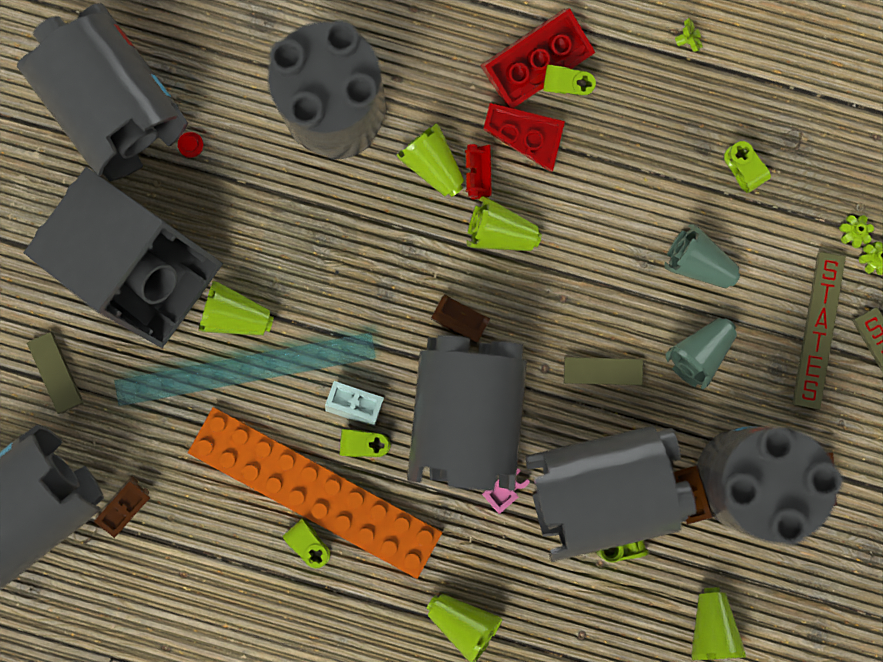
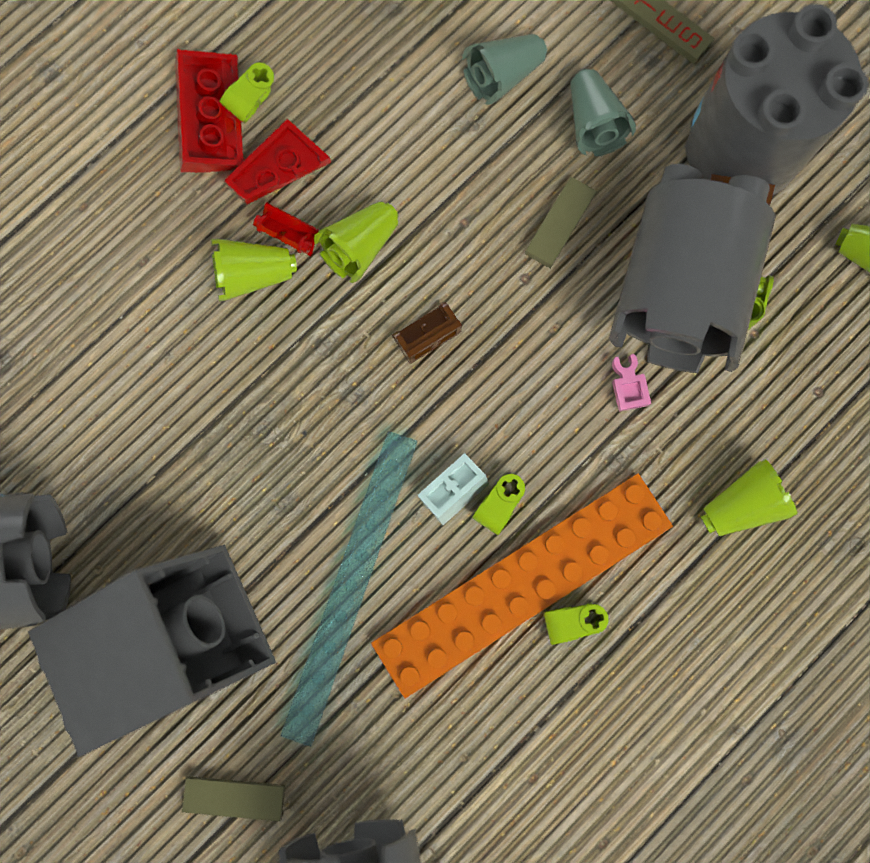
camera: 60 degrees left, 5 degrees down
(122, 507) = (424, 805): reddish brown hinge -> none
(190, 144) = (78, 509): red plate -> none
(233, 313) = (283, 563): lime cone -> none
(328, 88) = (102, 314): dark grey brick -> none
(468, 413) = (532, 368): dark grey brick -> none

